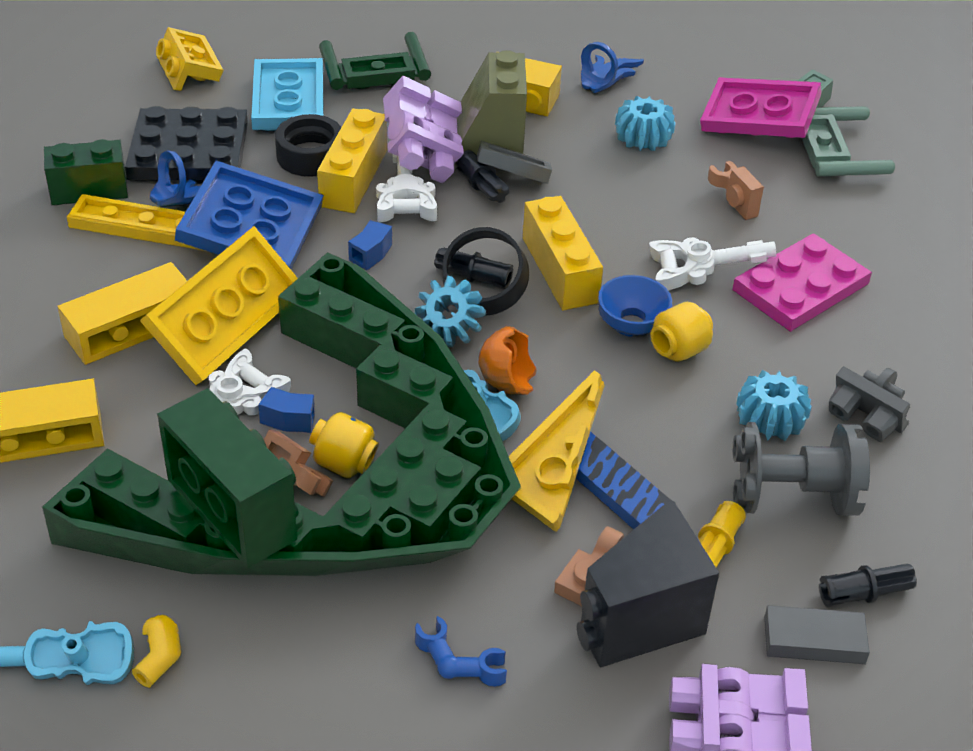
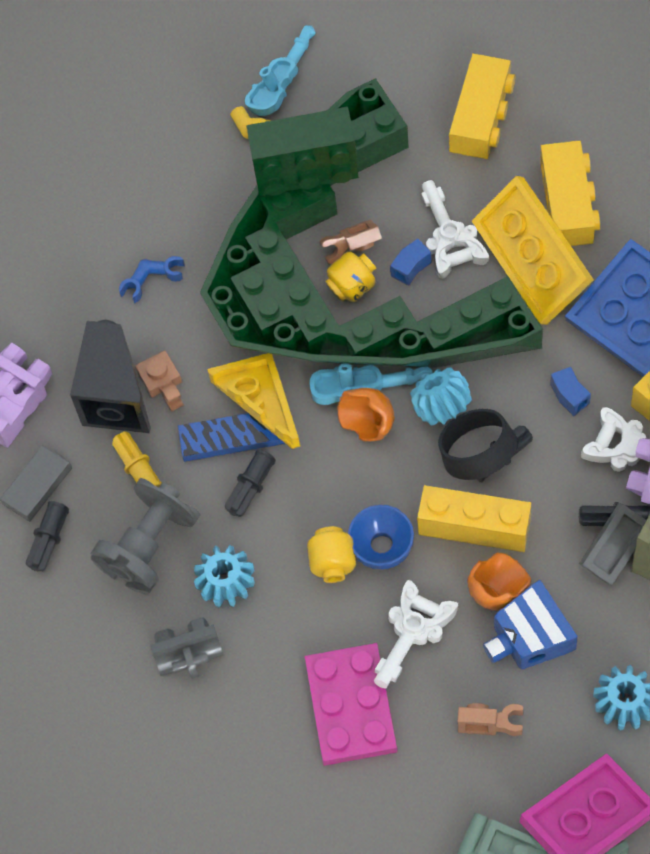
camera: 130 degrees right, 20 degrees up
(612, 218) = (497, 581): none -> orange hair
(634, 189) = (531, 630): none -> torso
(655, 434) = (249, 483): none -> black axle

